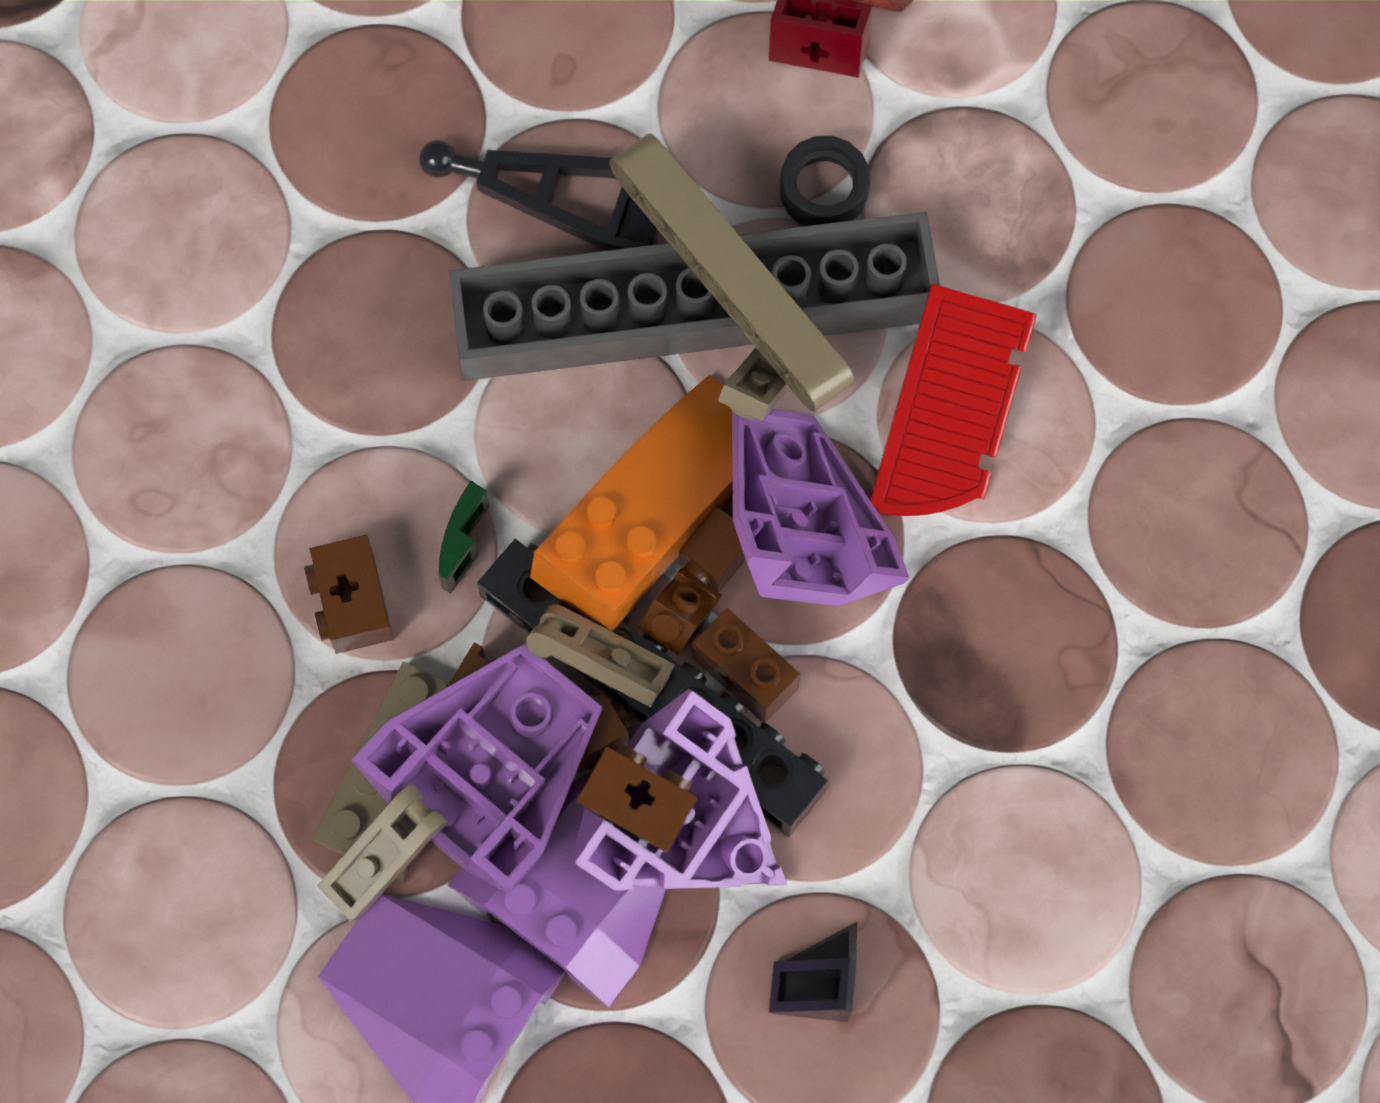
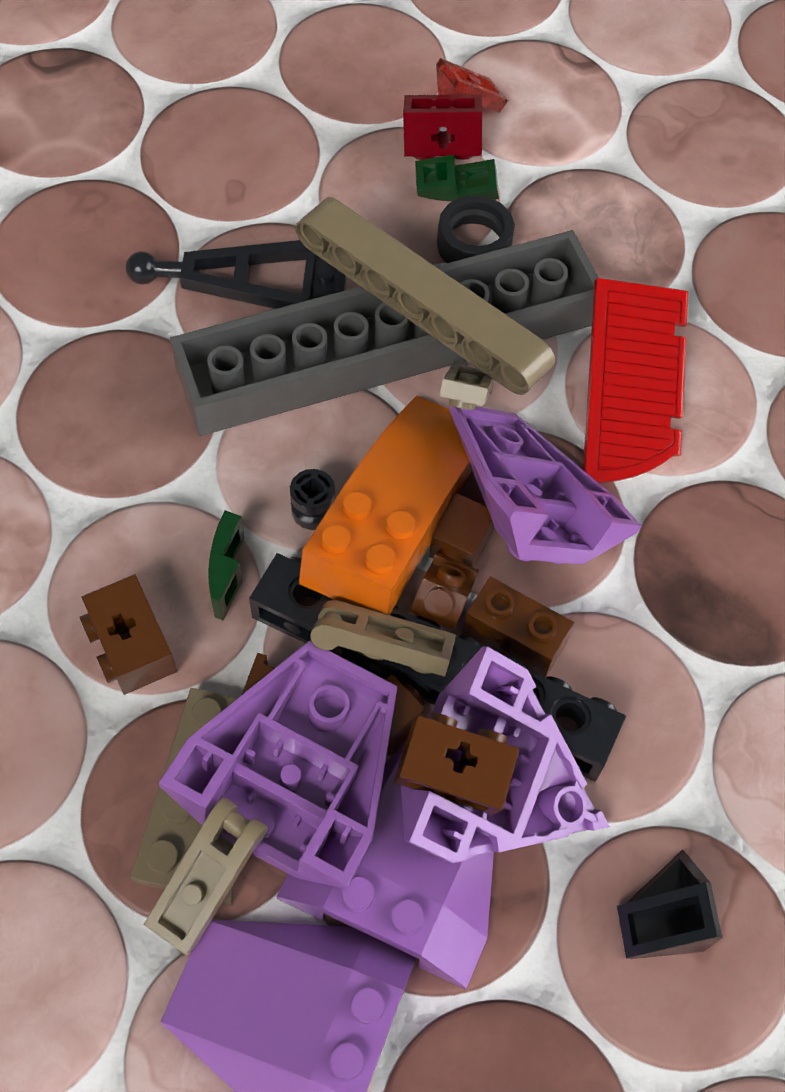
camera: 15 degrees left, 10 degrees down
(566, 490) = (311, 497): none -> black wheel
(821, 104) = (445, 181): none -> dark green slope

